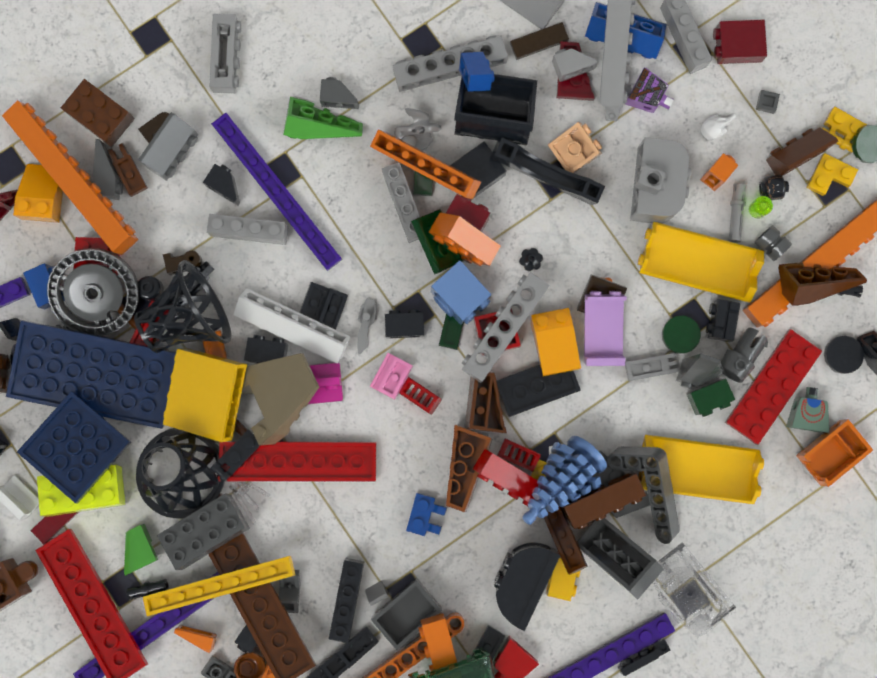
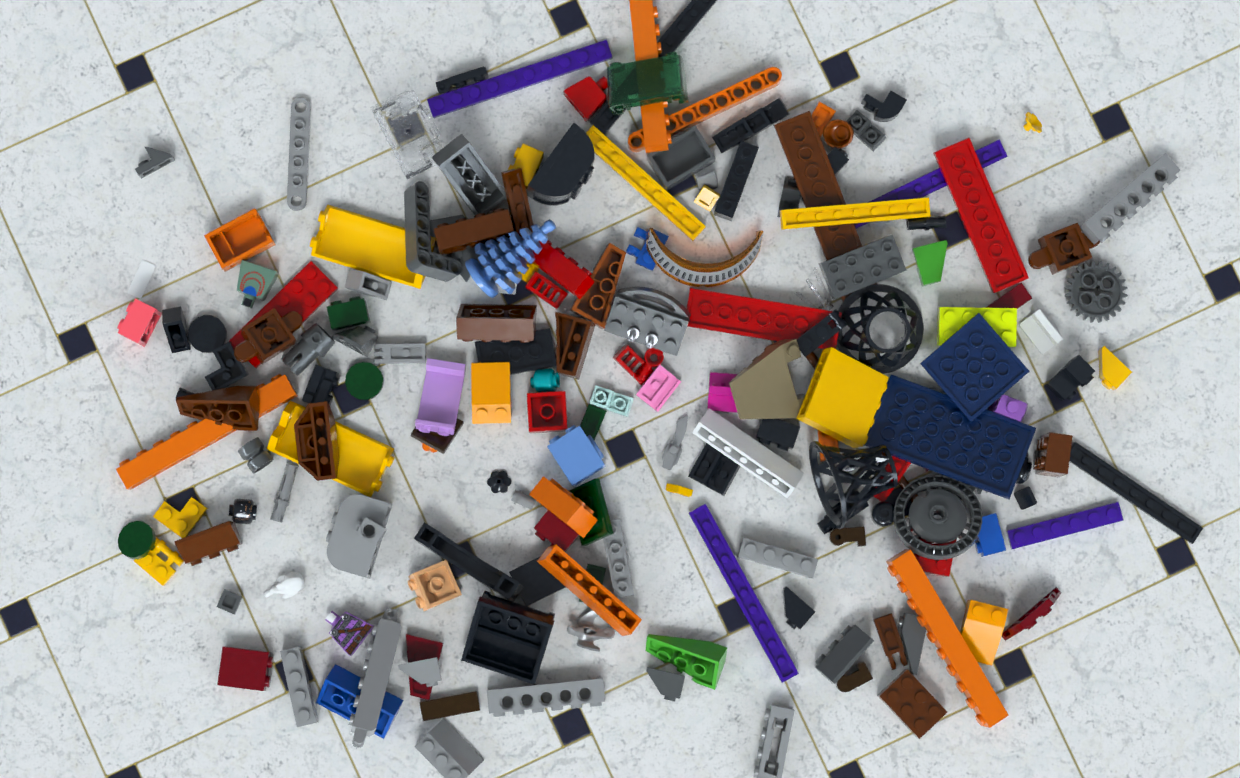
camera: 170 degrees left, 0 degrees up
(34, 412) = (1009, 408): none -> medium lavender torso
(200, 638) = (882, 169): orange slope -> none
(354, 279) = (679, 490): none -> yellow tile
(369, 496) = (700, 274): none -> windscreen
(373, 577) = (707, 198): none -> yellow plate
(403, 398) = (649, 364): none -> red bar
(404, 324) = (636, 436): black brick -> none
(412, 440) = (648, 320): none -> piece
(435, 356) = (611, 401): none -> light aqua slope
(440, 581) = (645, 184): none -> yellow plate
(476, 71) = (522, 674): blue brick -> none
(506, 364) = (545, 380): none -> teal head
(508, 246) = (523, 499): none -> light grey pin
(536, 288) = (500, 443): light grey brick -> none
(563, 413) = (496, 322): none -> reddish brown slope
(697, 430) = (368, 284): none -> light grey slope
(716, 263) = (317, 441): none -> reddish brown wedge
(719, 171) = (295, 535): orange brick -> none
(760, 207) = (266, 493): clear neon green brick -> none
(788, 358) = (268, 336): none -> reddish brown brick
(792, 551) = (298, 154): none -> light grey plate
(816, 324) = (230, 370): none -> black brick

